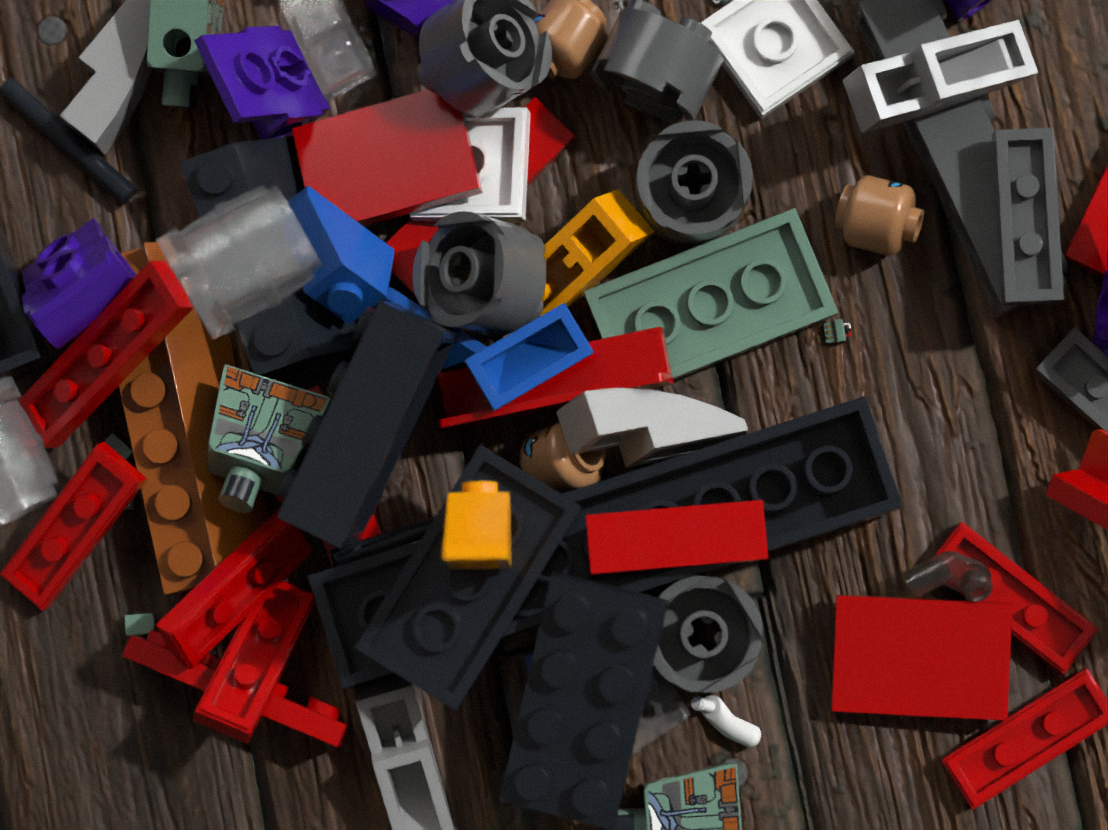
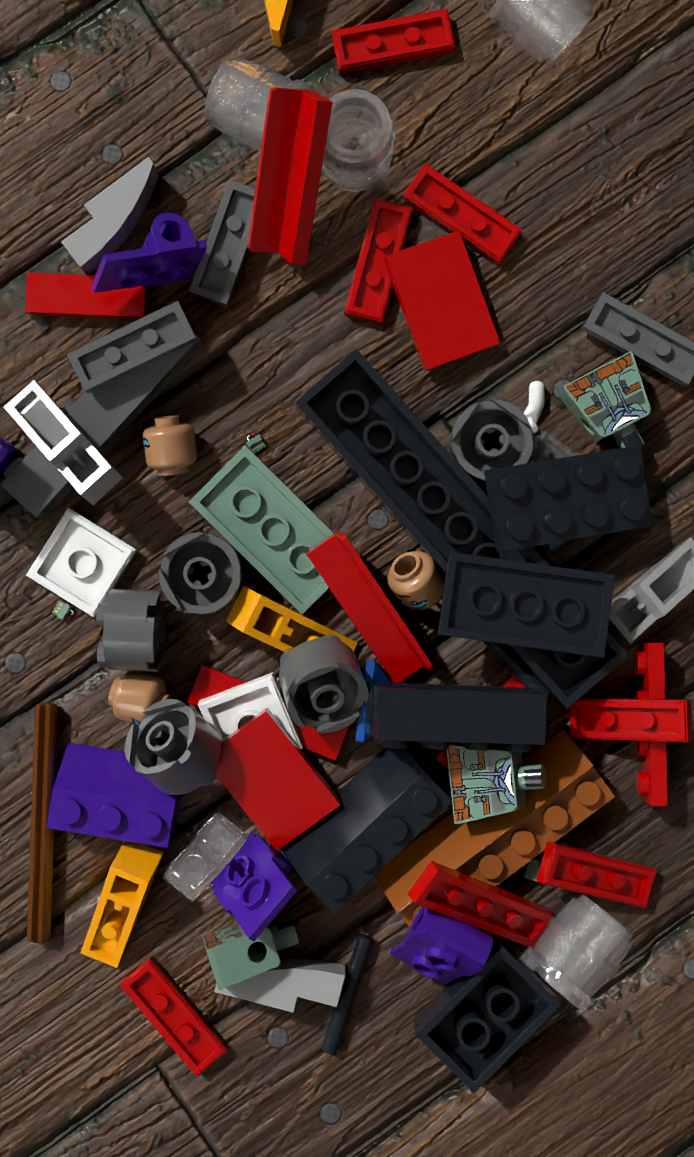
camera: 115 degrees left, 5 degrees up
(140, 623) = (636, 803): sand green piece -> none
(233, 589) = (597, 754): red tile -> none
(241, 258) = (387, 845): clear piece -> none
(352, 257) = (351, 785): blue slope -> none
(478, 527) = (501, 608): light orange slope -> none
(528, 357) = (364, 629): blue slope -> none
(644, 424) = (374, 536): slope -> none
(676, 537) = (440, 483): red tile -> none
(953, 571) = (379, 302): clear smoke arm -> none

